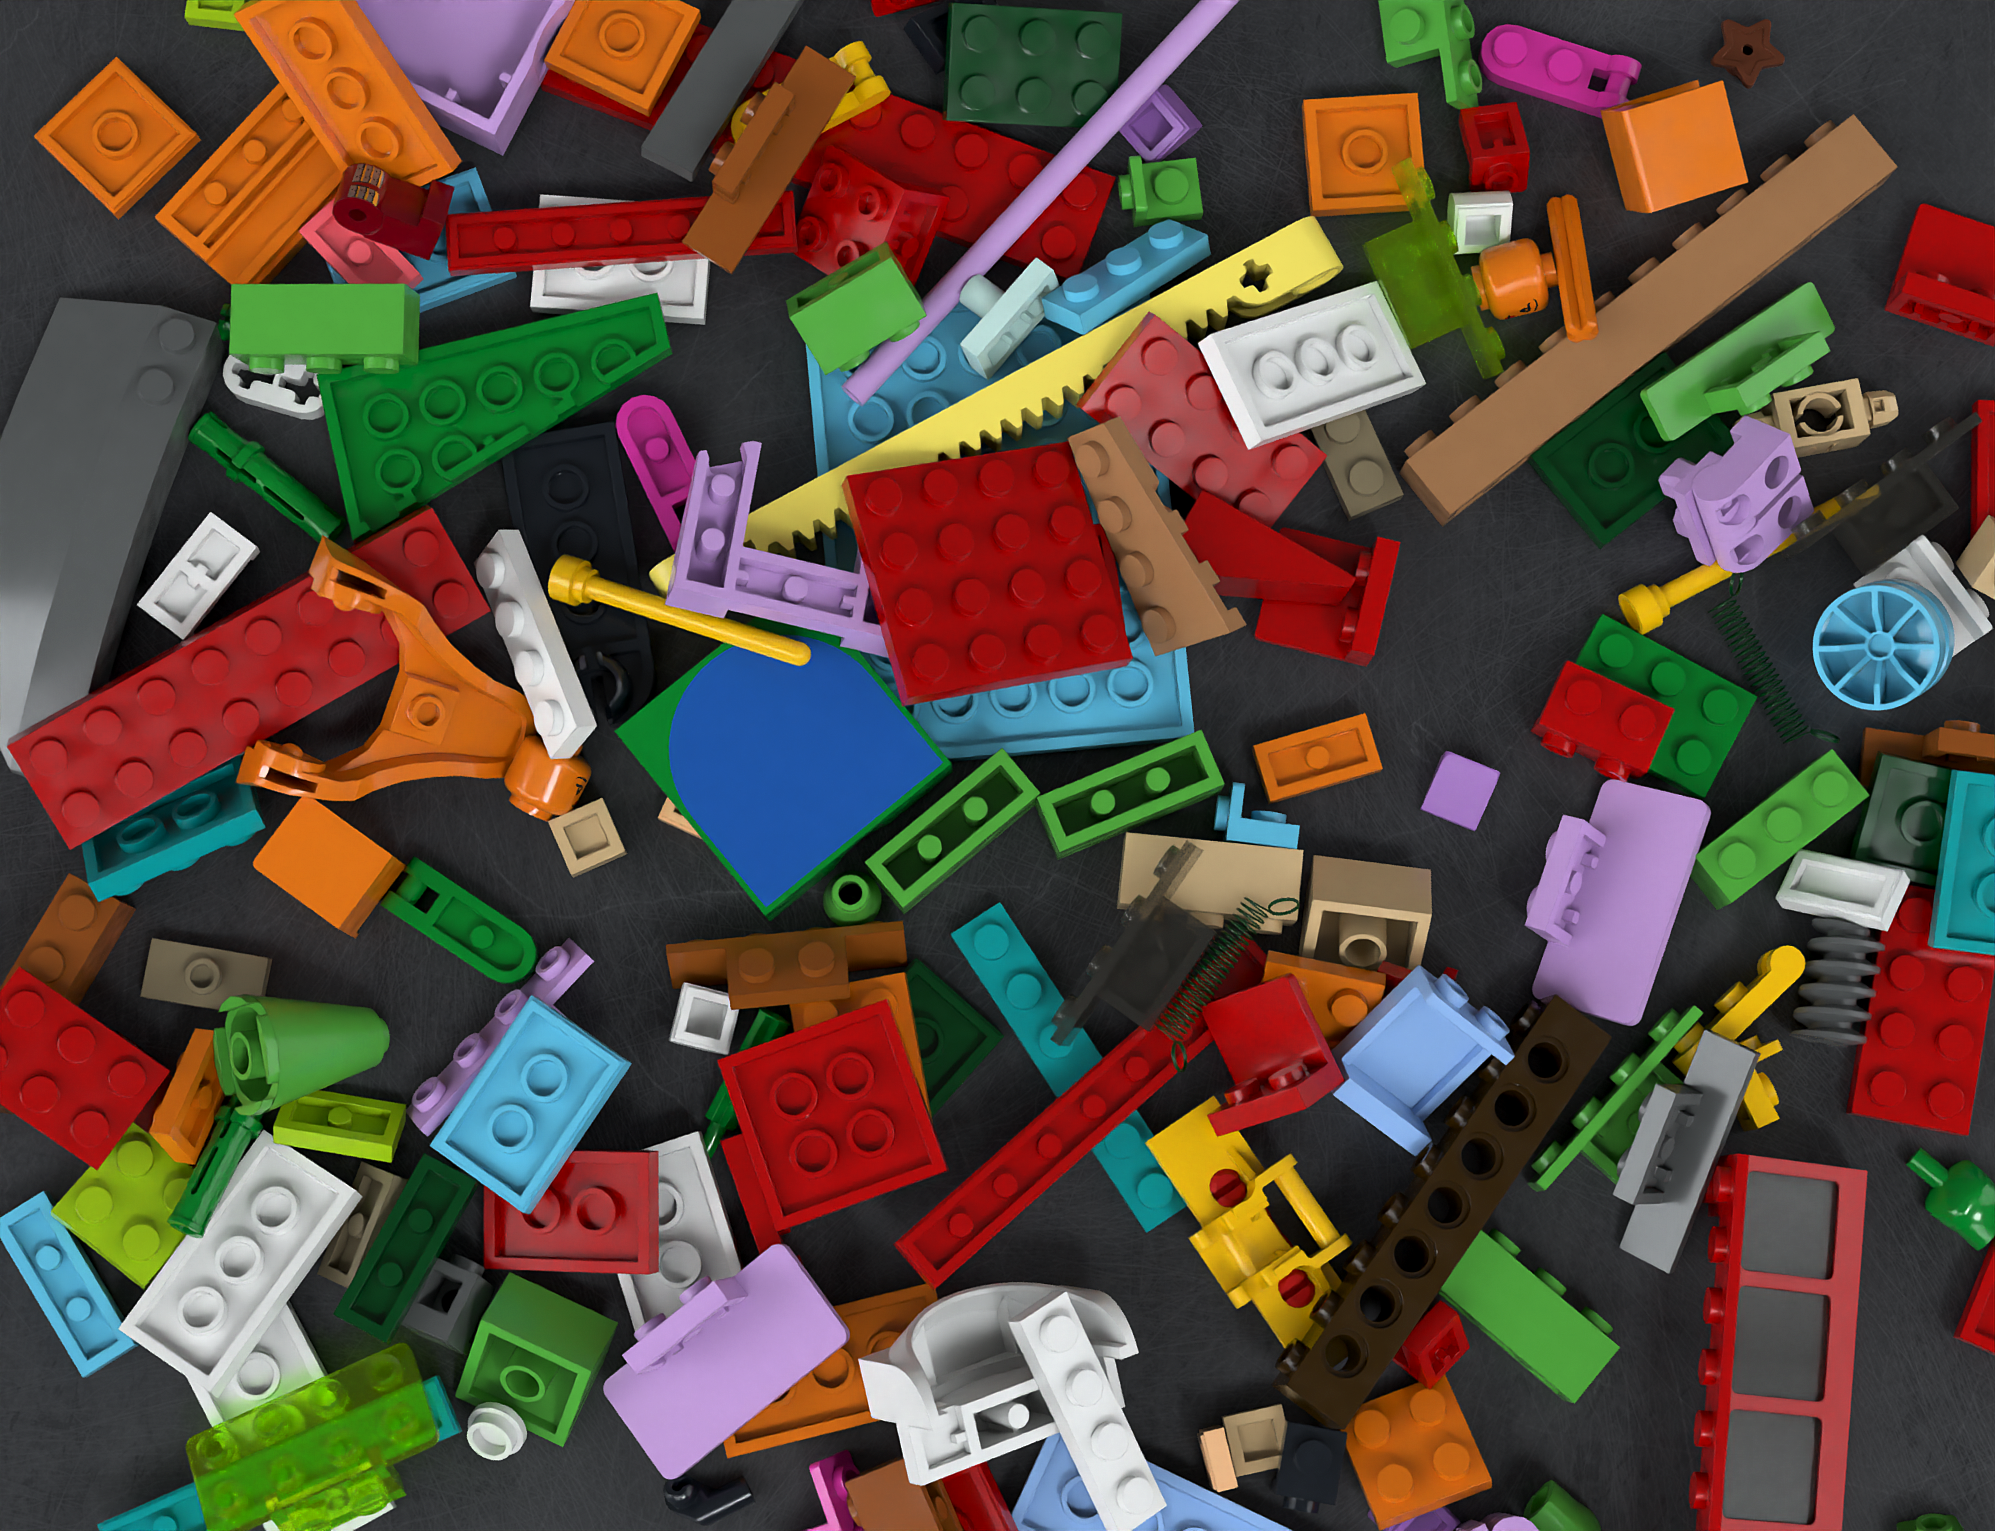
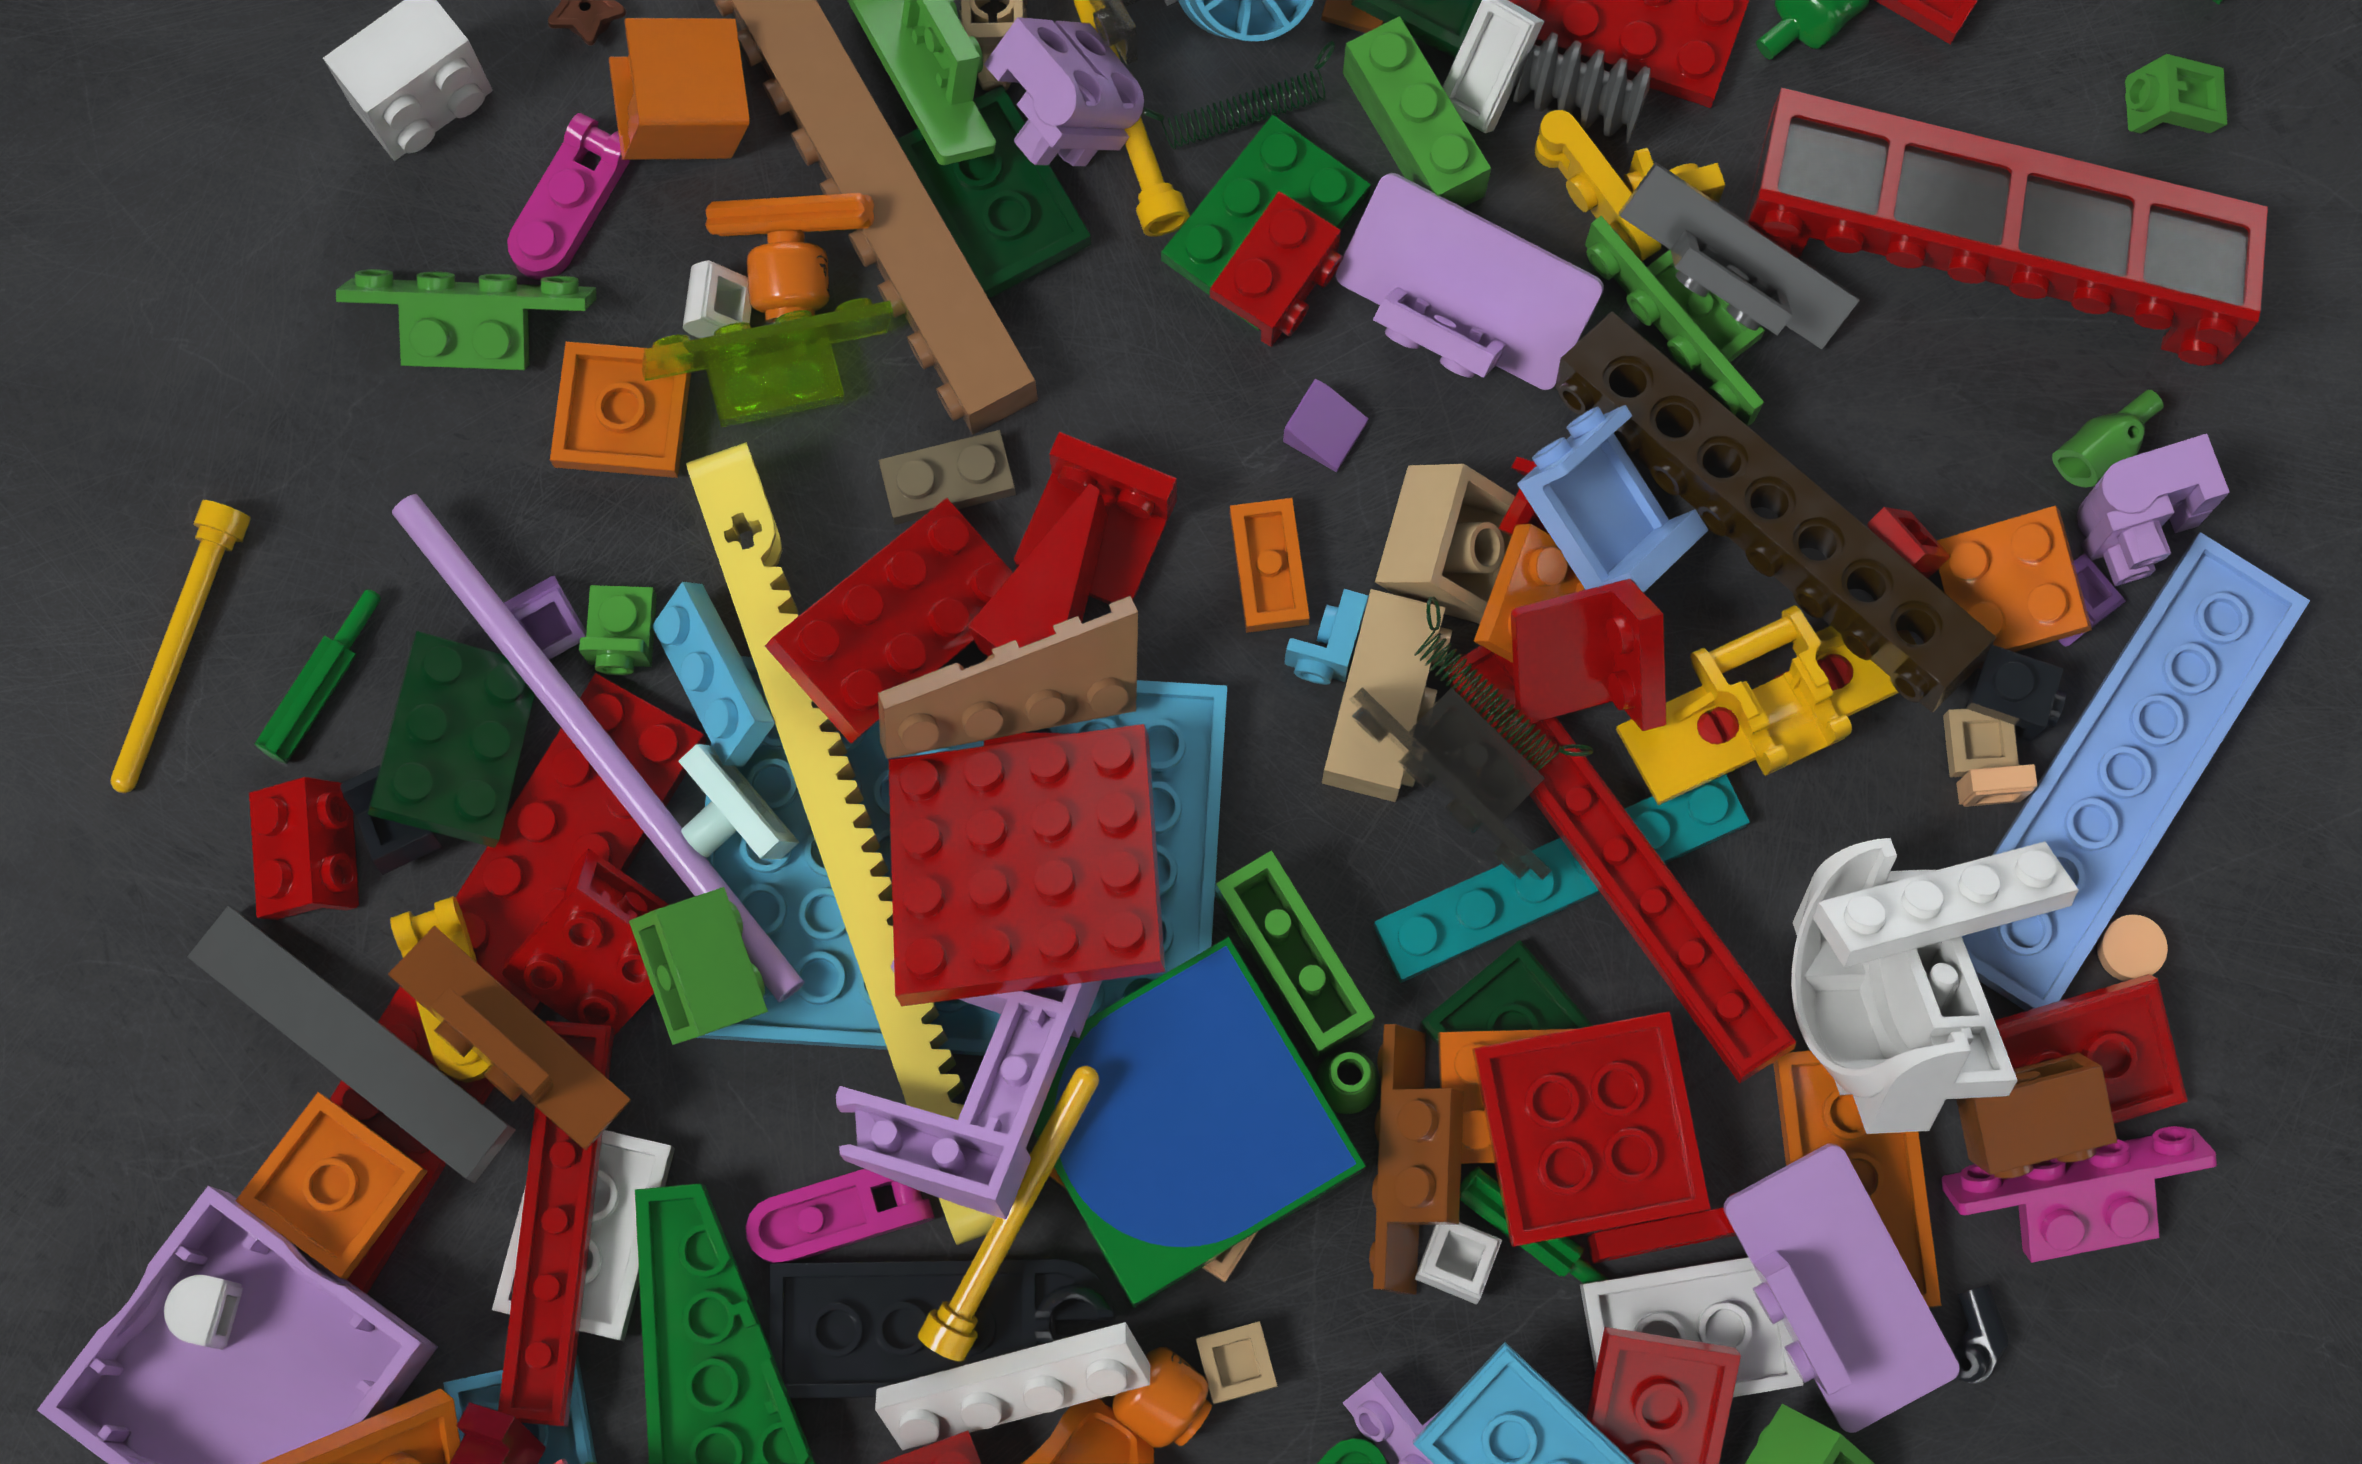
camera: 75 degrees left, 5 degrees down
(1129, 794) = (1282, 761): bright green brick -> none
(1311, 364) = (849, 493): white plate -> none
(1495, 147) = (640, 273): red bracket -> none
(1529, 1316) = (1893, 441): bright green brick -> none

